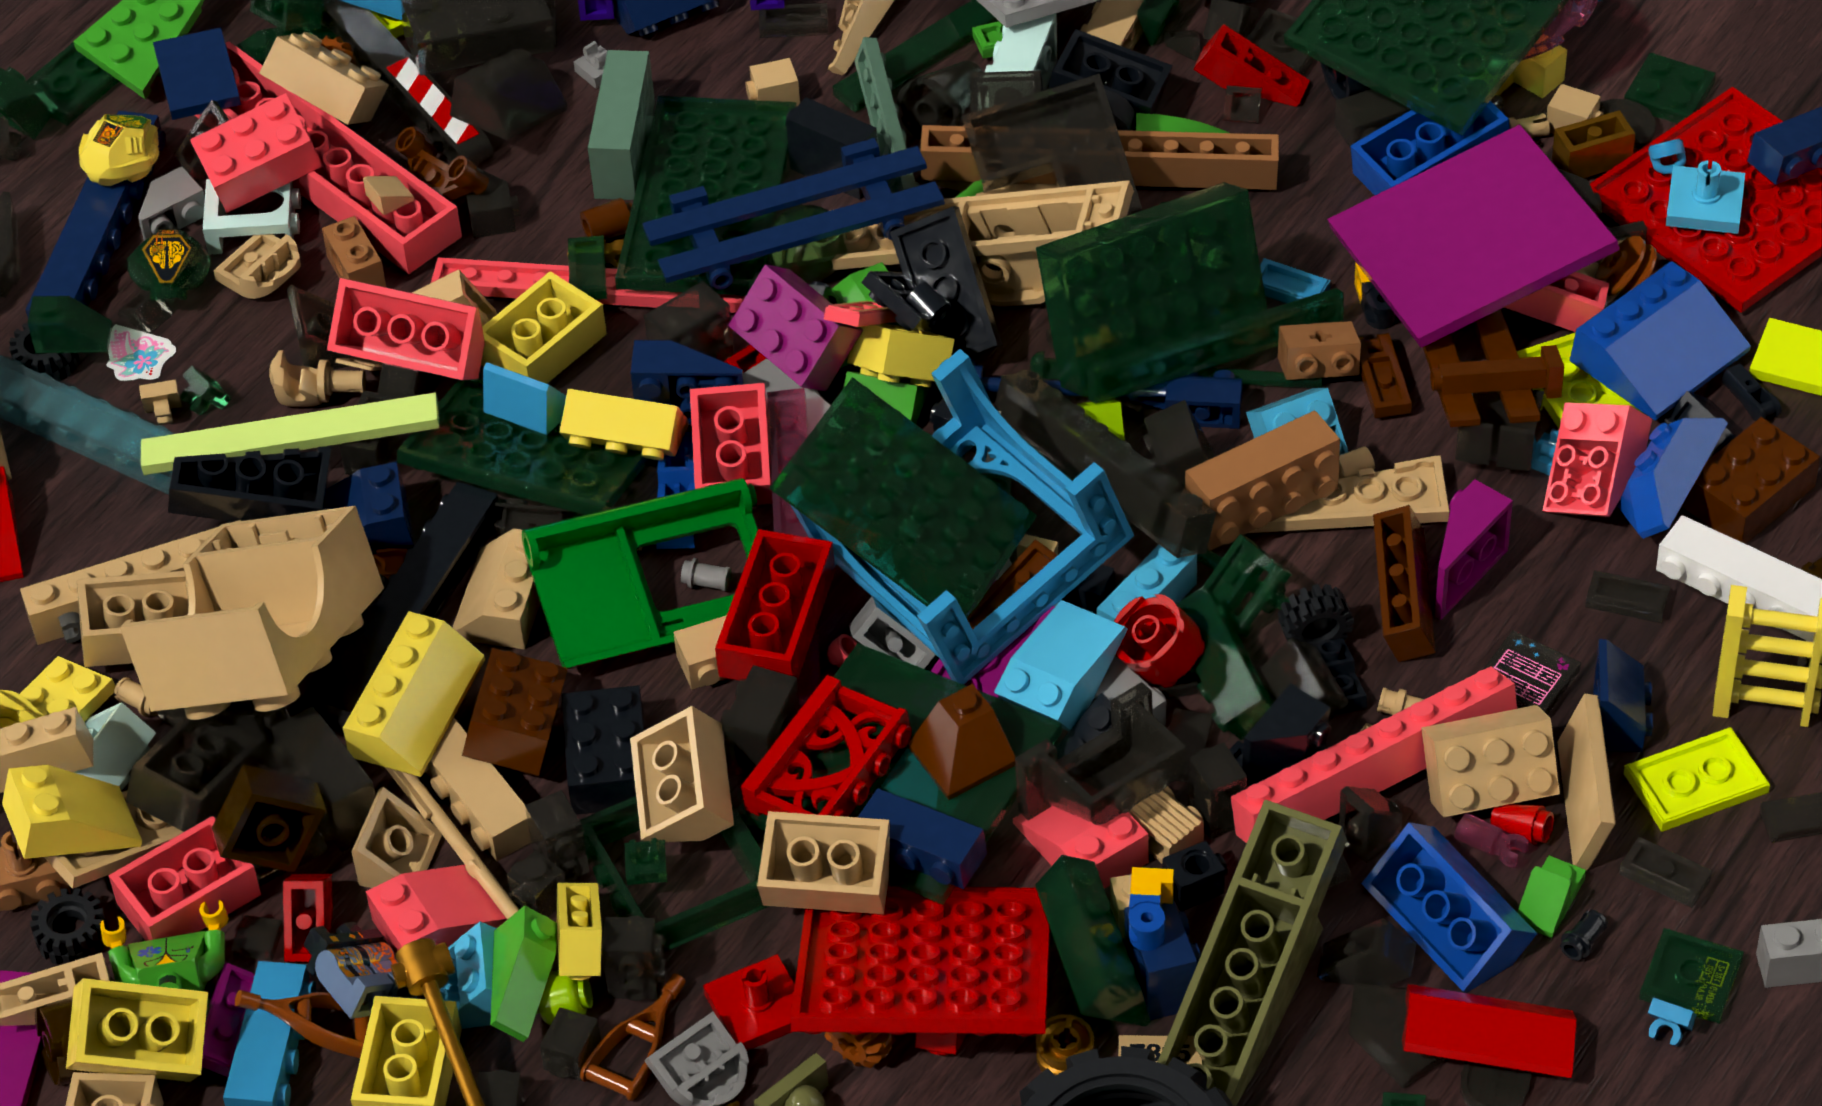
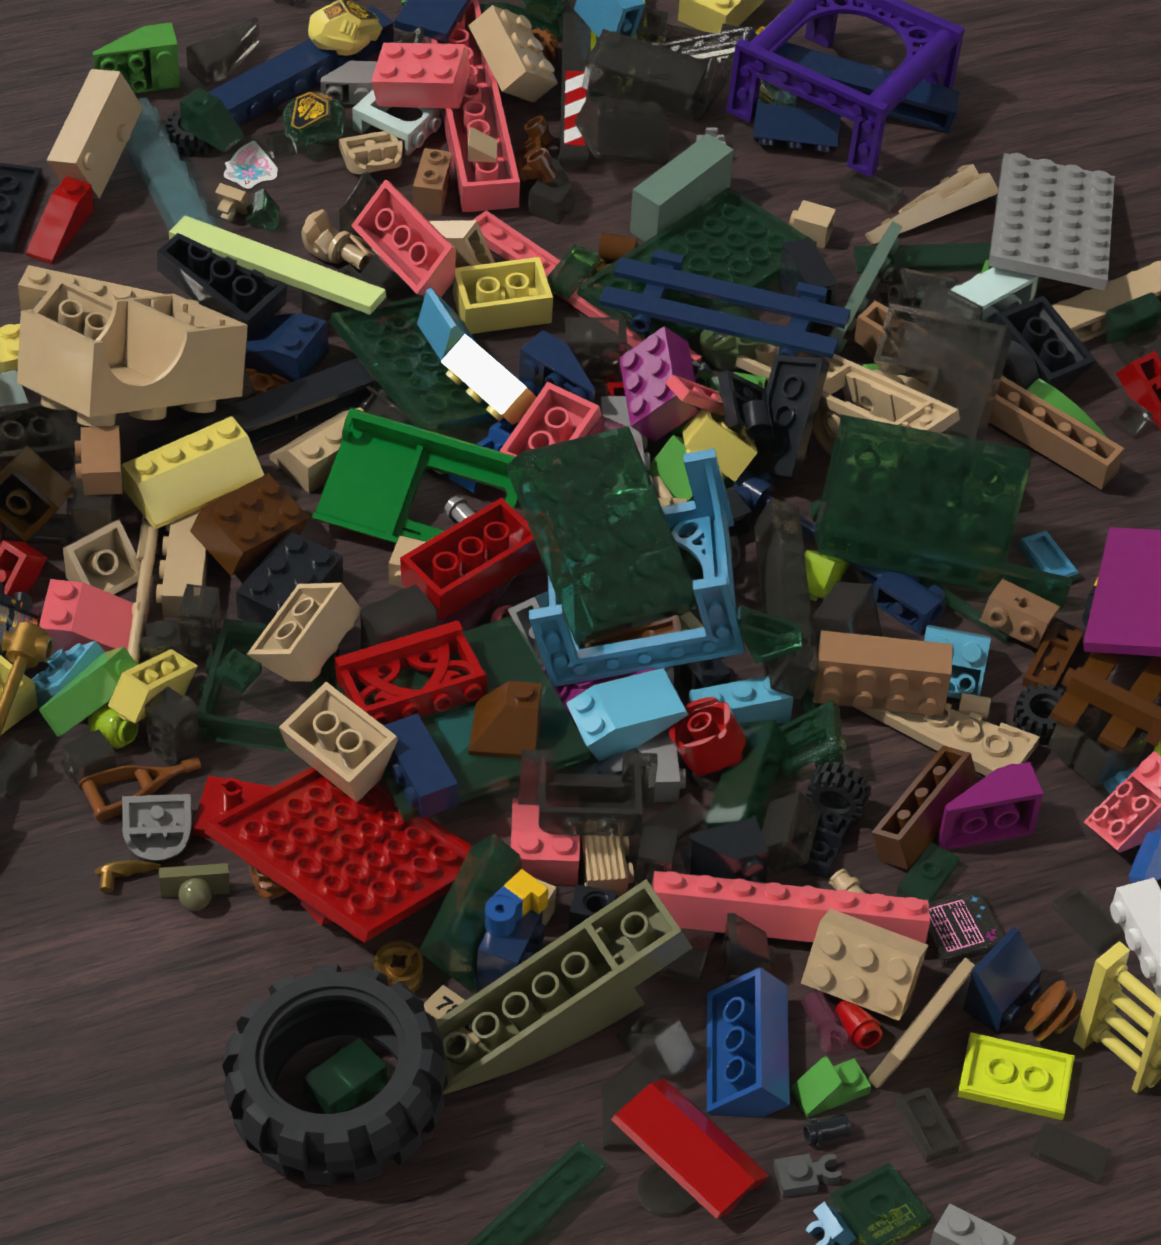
camera: 30 degrees right, 0 degrees up
(322, 735) = (100, 460): none -> medium nougat brick
(1151, 503) = (768, 635): none -> clear green slope
(1420, 417) = (1034, 700): none -> black tyre
(1455, 646) = (928, 873): none -> clear green plate
(1597, 992) = (801, 1176): none -> dark grey plate
(1686, 697) = (1055, 1007): none -> dark orange piece

